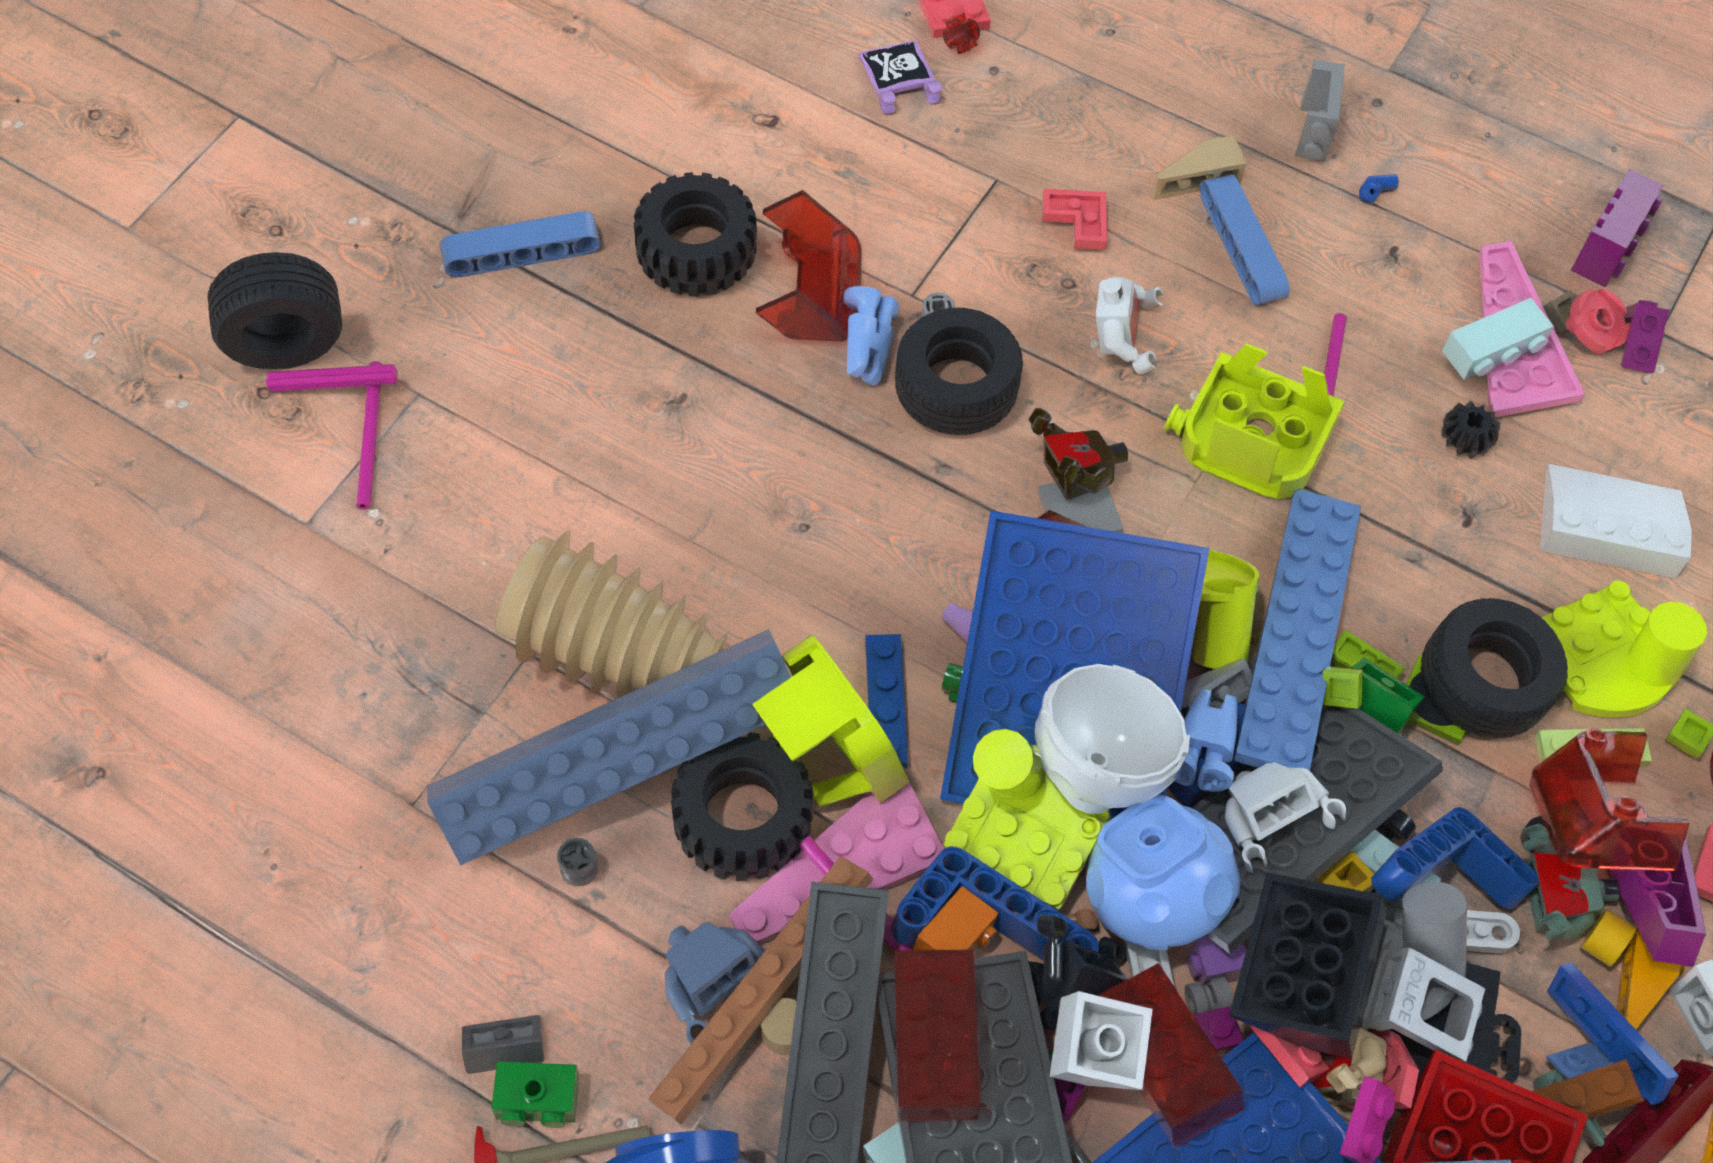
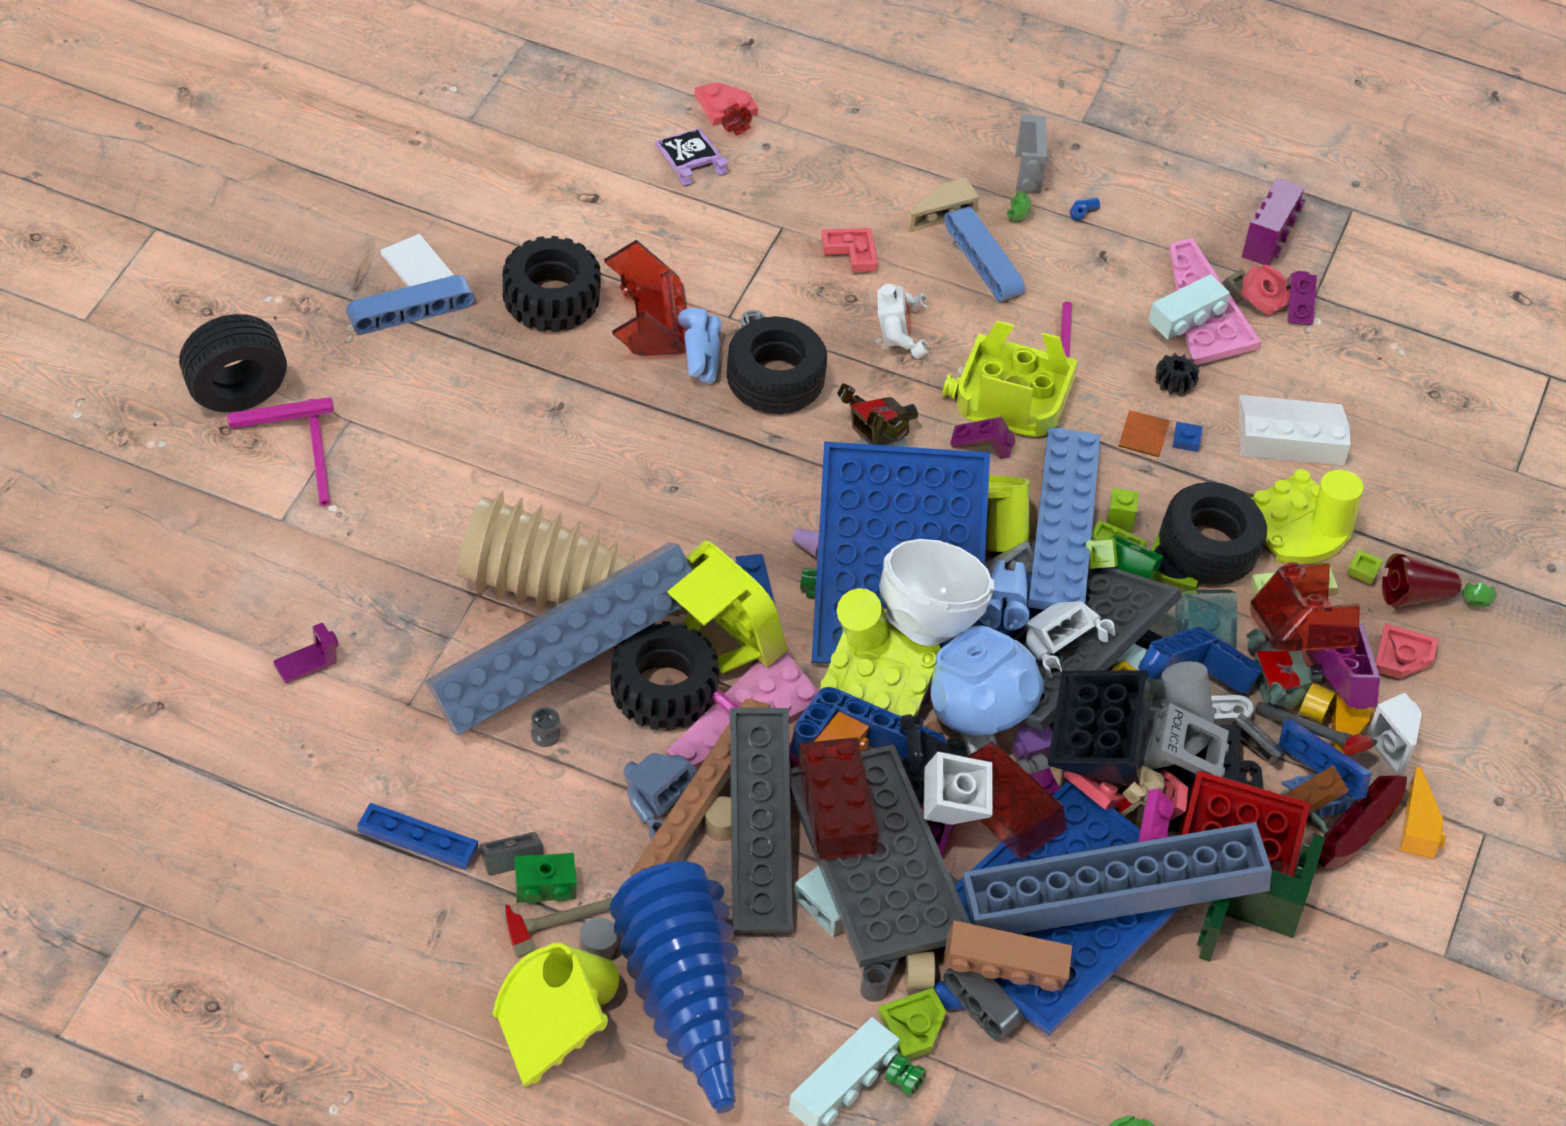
camera: 10 degrees left, 10 degrees down
(294, 728) = (309, 658): none -> magenta bracket
(383, 1008) = (417, 836): none -> blue plate
(540, 187) = (415, 261): none -> white piece
(1211, 488) = (987, 430): none -> magenta bracket
(1297, 179) = (1019, 207): none -> bright green plate
(1377, 618) = (1122, 509): none -> lime brick
(1418, 507) = (1144, 433): none -> clear orange window
(1473, 517) = (1187, 436): none -> blue plate
(1474, 781) = (1209, 610): none -> clear light blue slope
(1521, 982) = (1257, 739): none -> flat silver slope
(1655, 1016) = (1350, 743): none -> dark grey piece

